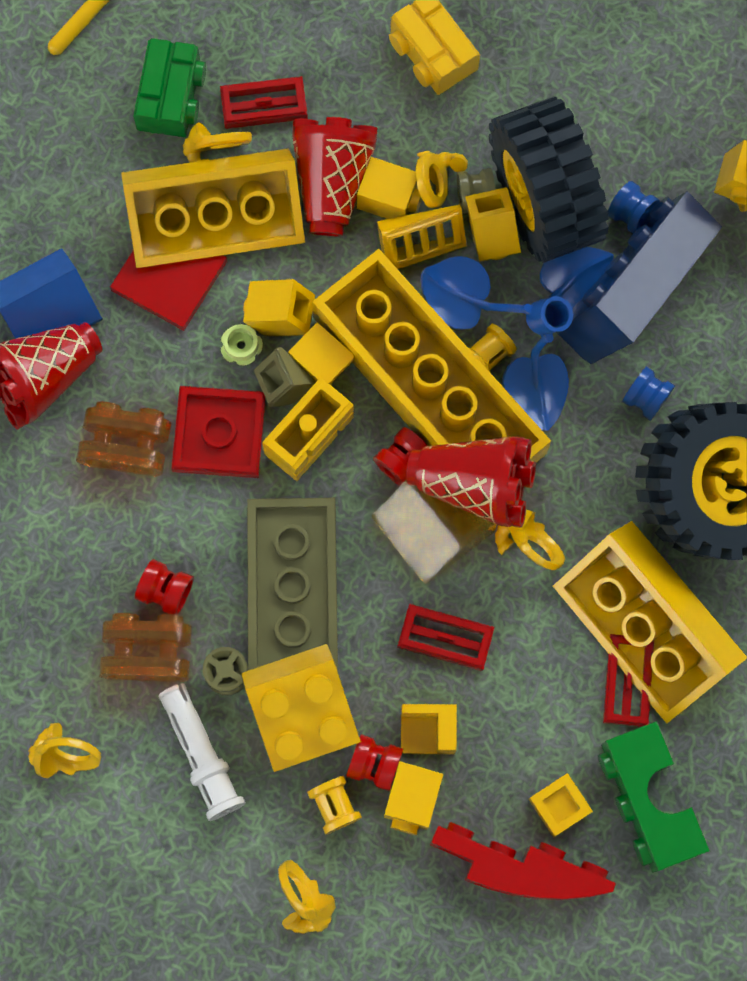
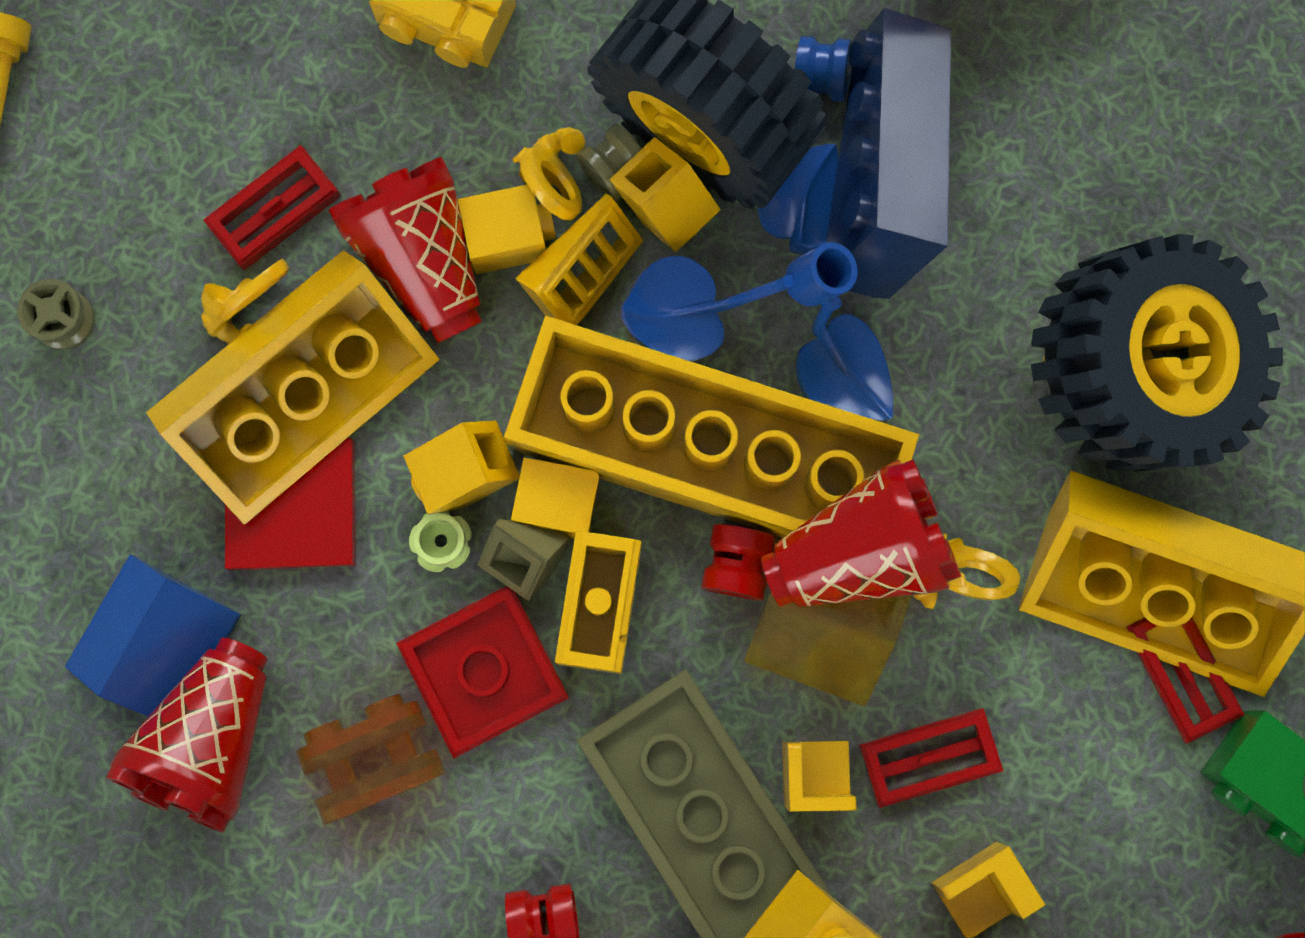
camera: 30 degrees left, 5 degrees up
(101, 81) = (44, 305): none -> olive wheel
(168, 88) = (138, 262): green brick -> none
(371, 603) = (817, 776): none -> yellow panel
(493, 347) = (760, 352): yellow bush -> none
(560, 805) = (1205, 884): yellow plate -> none
(648, 393) = (987, 294): blue wheel -> none

